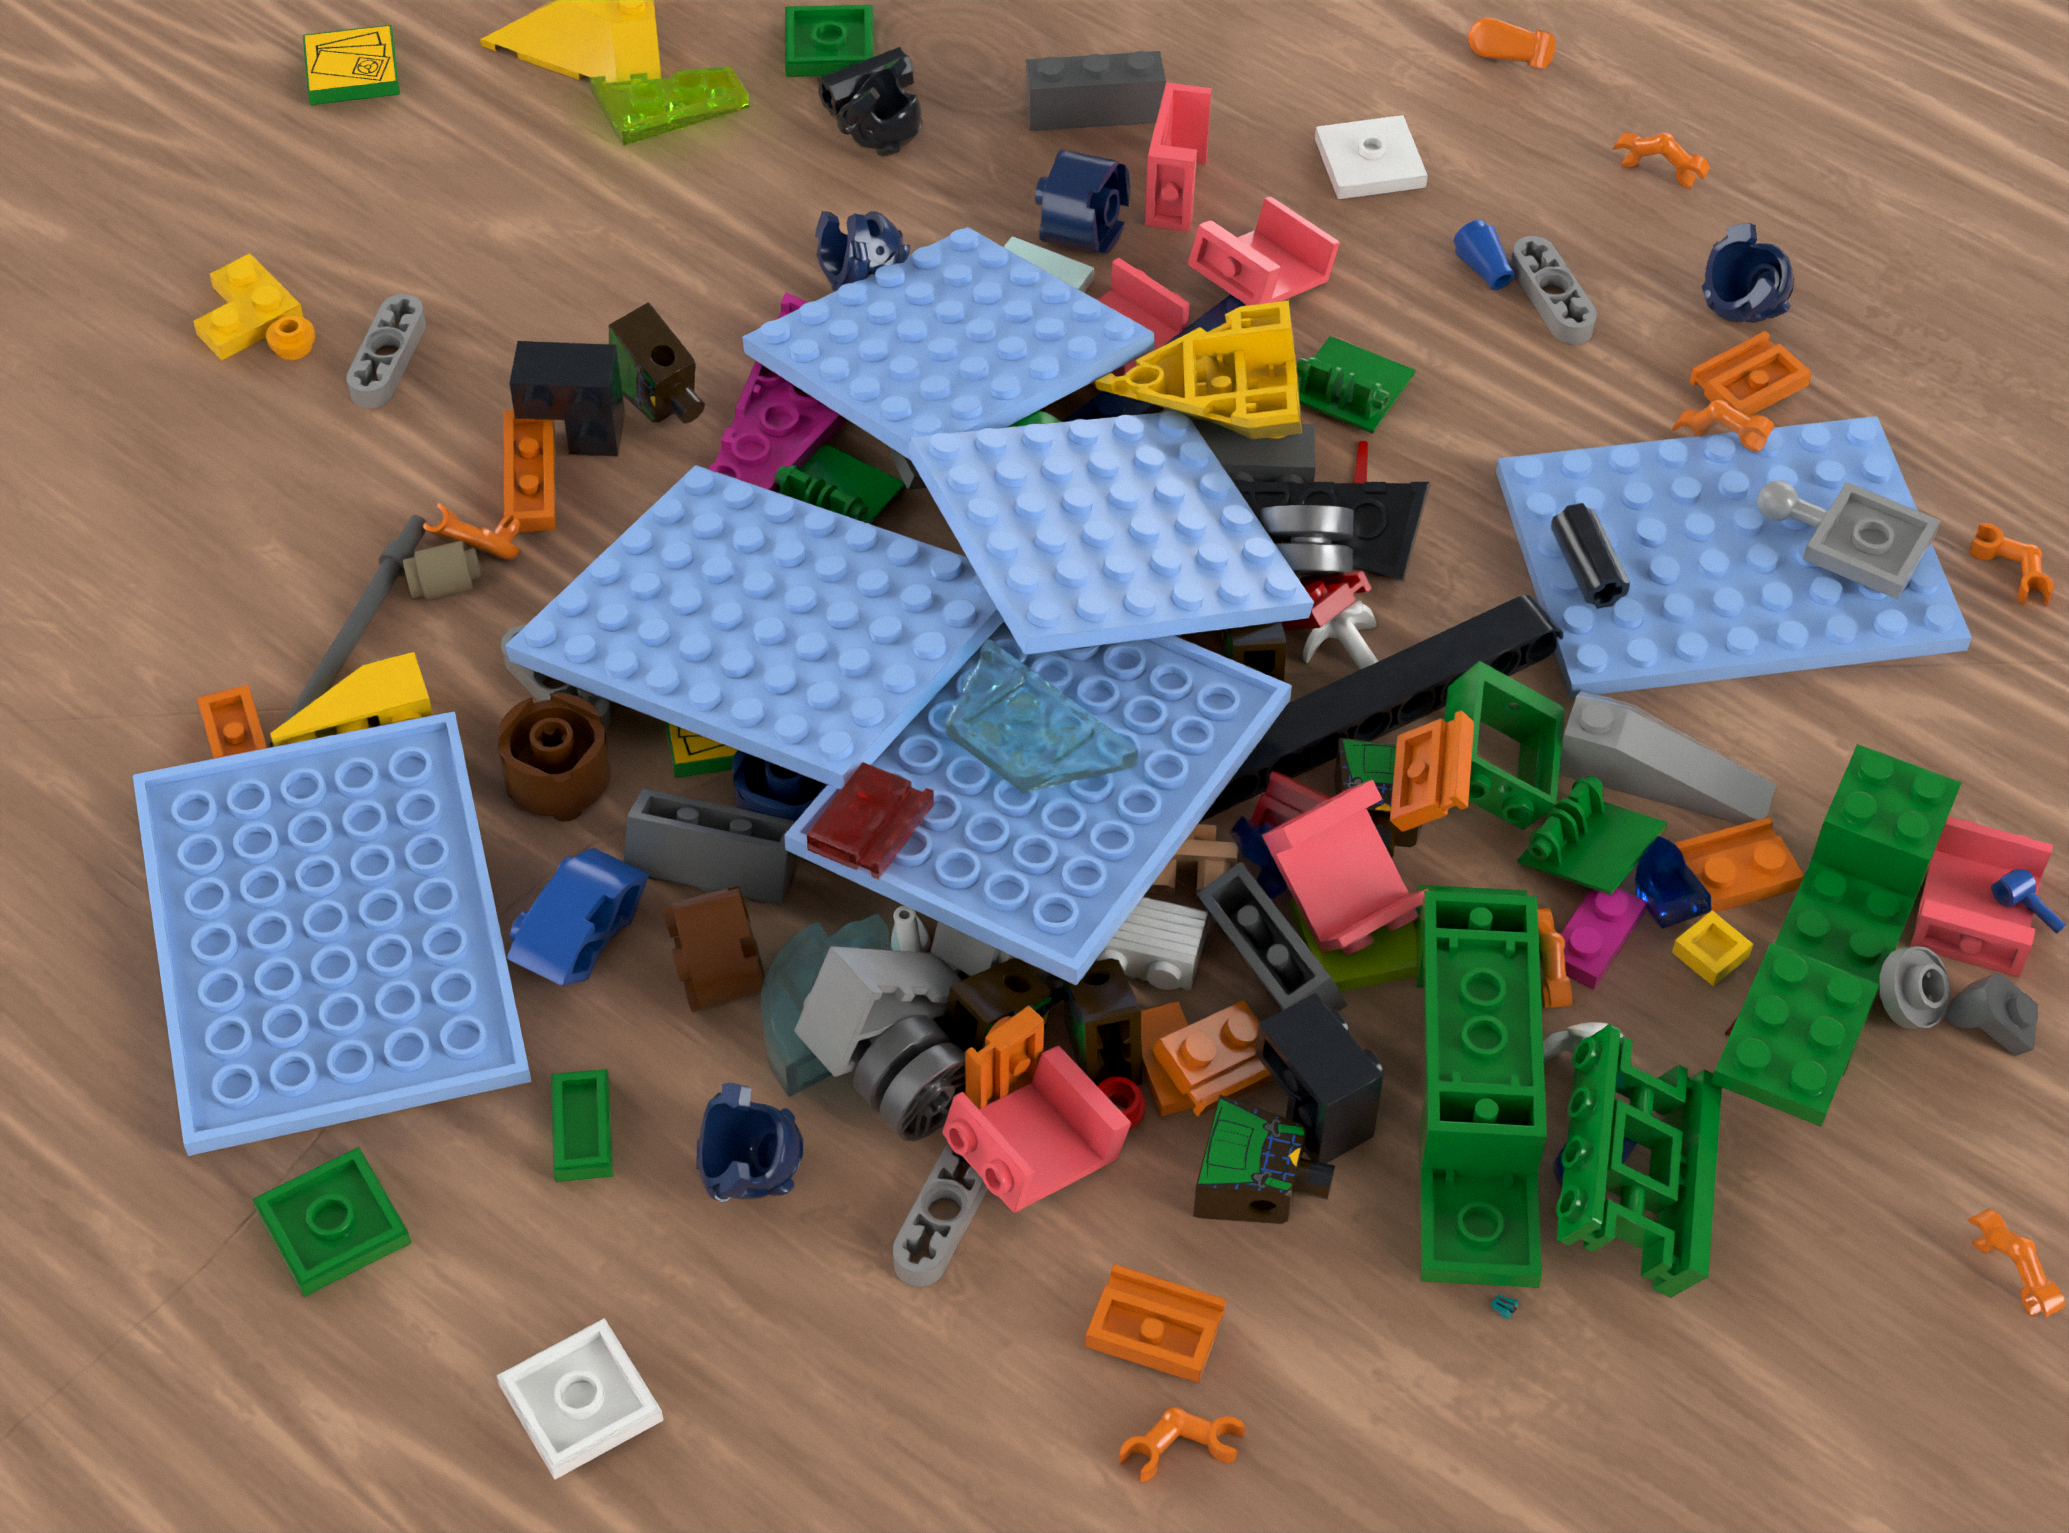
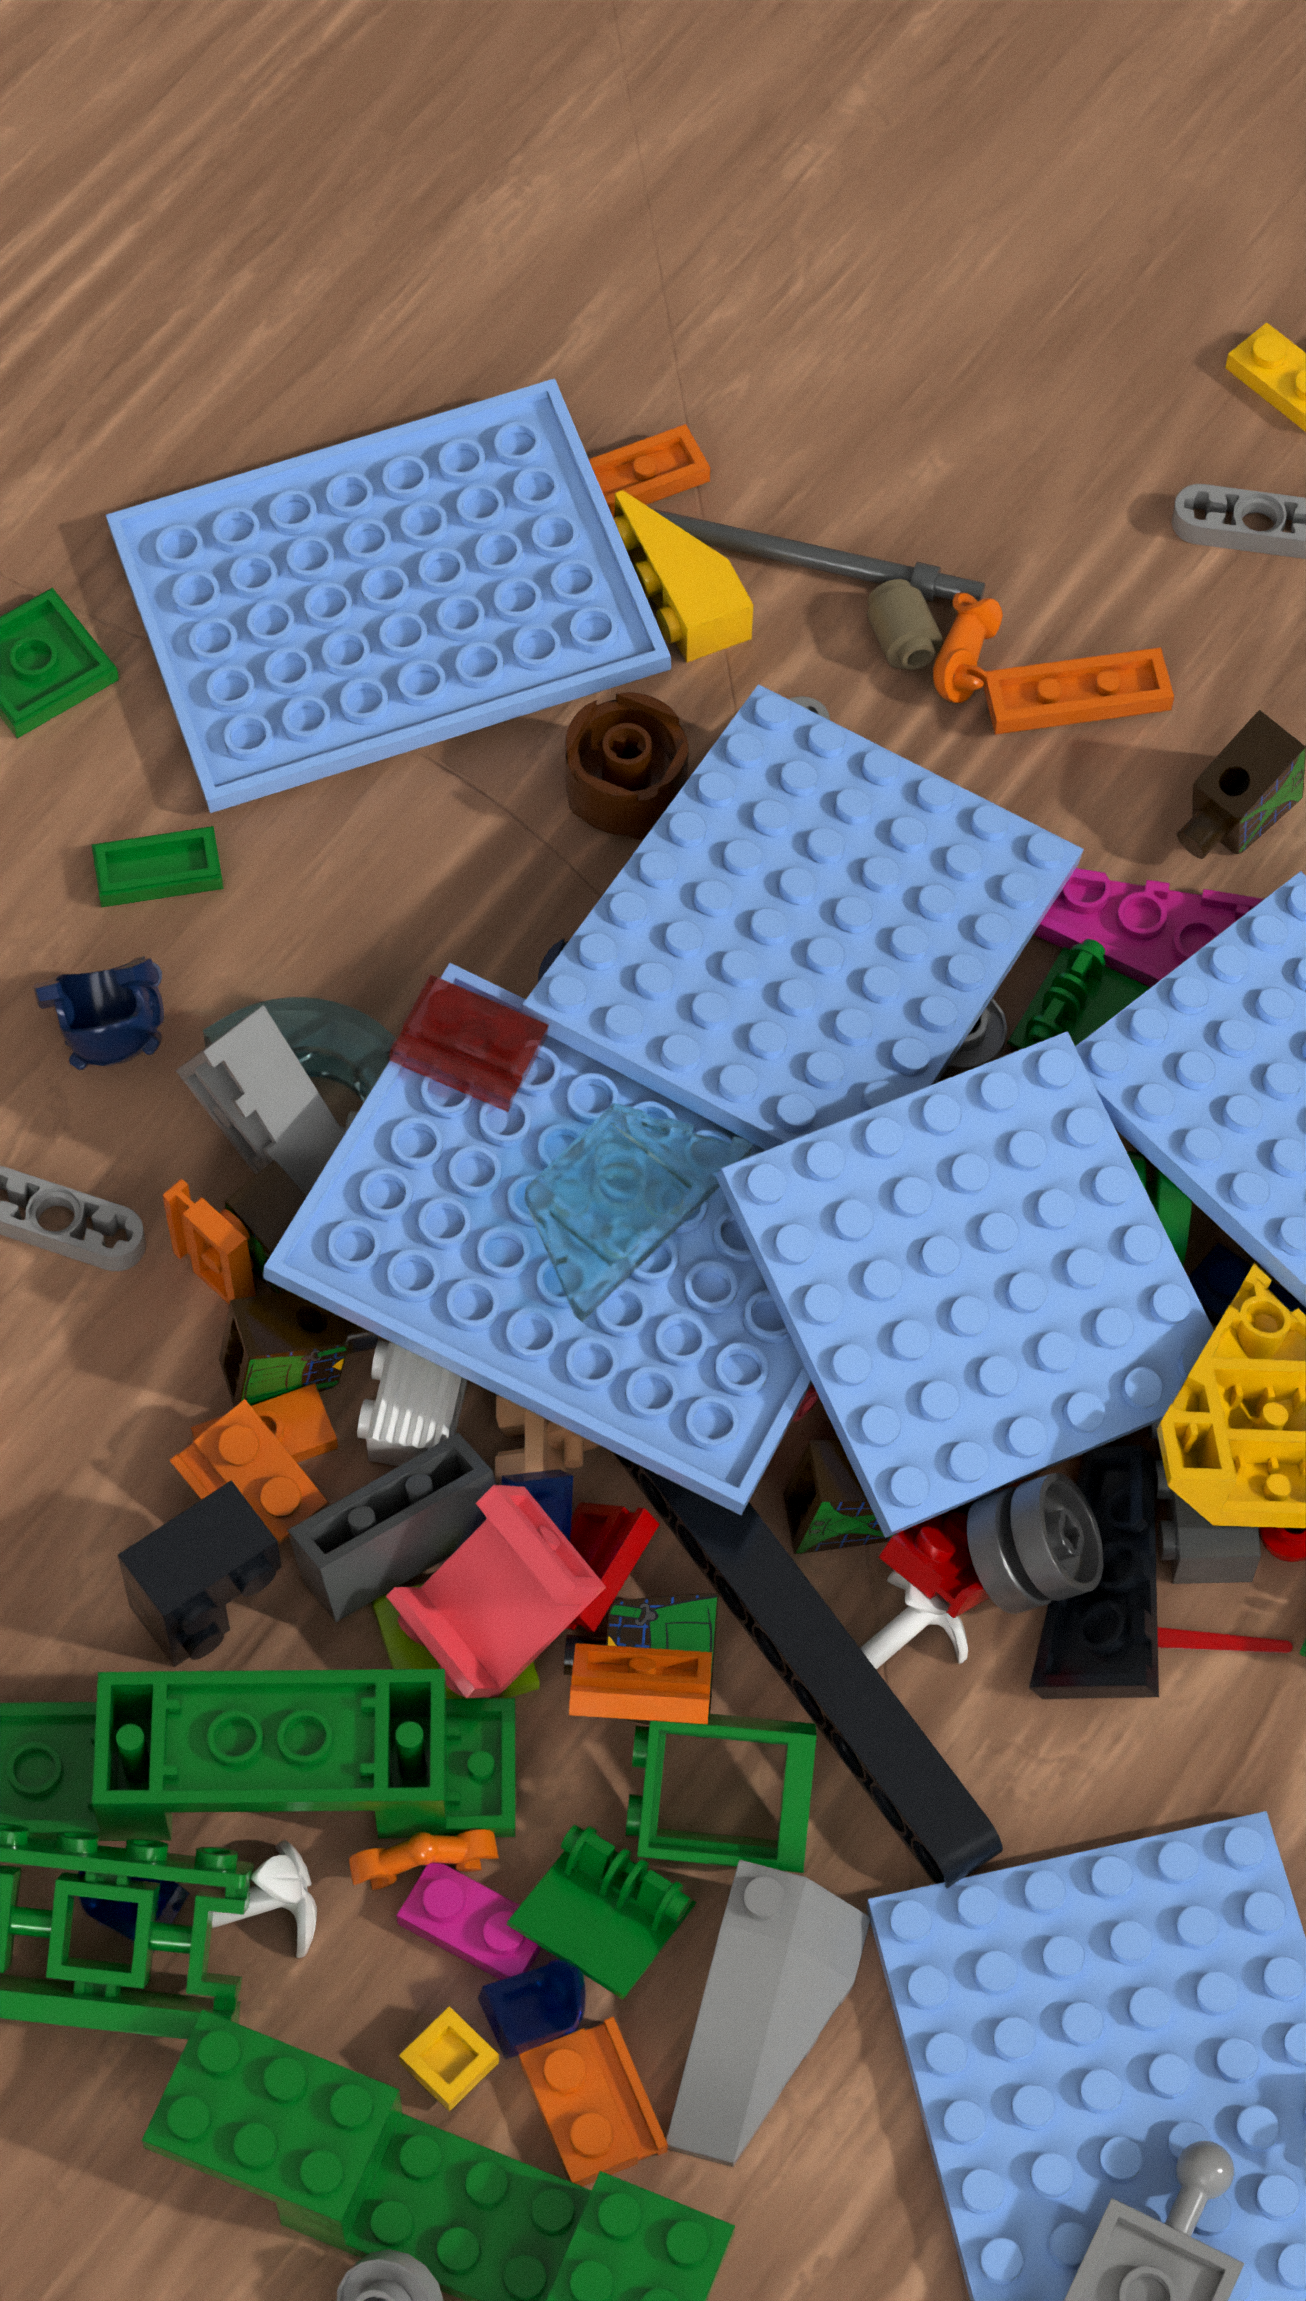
camera: 85 degrees right, 10 degrees up
(291, 337) = (1258, 434): light orange plate -> none
(571, 385) = (1174, 701): black brick -> none
(576, 916) = (407, 817): blue brick -> none
(709, 846) = (512, 910): dark grey brick -> none
(715, 948) = (361, 947): reddish brown brick -> none
(911, 1076) = (198, 1146): flat silver wheel -> none
(1038, 1134) = (132, 1288): coral panel -> none
(1127, 1094) = (189, 1367): red plate -> none
(1255, 1166) = (98, 1513): torso -> none
(1590, 555) = (1065, 1907): black axle -> none

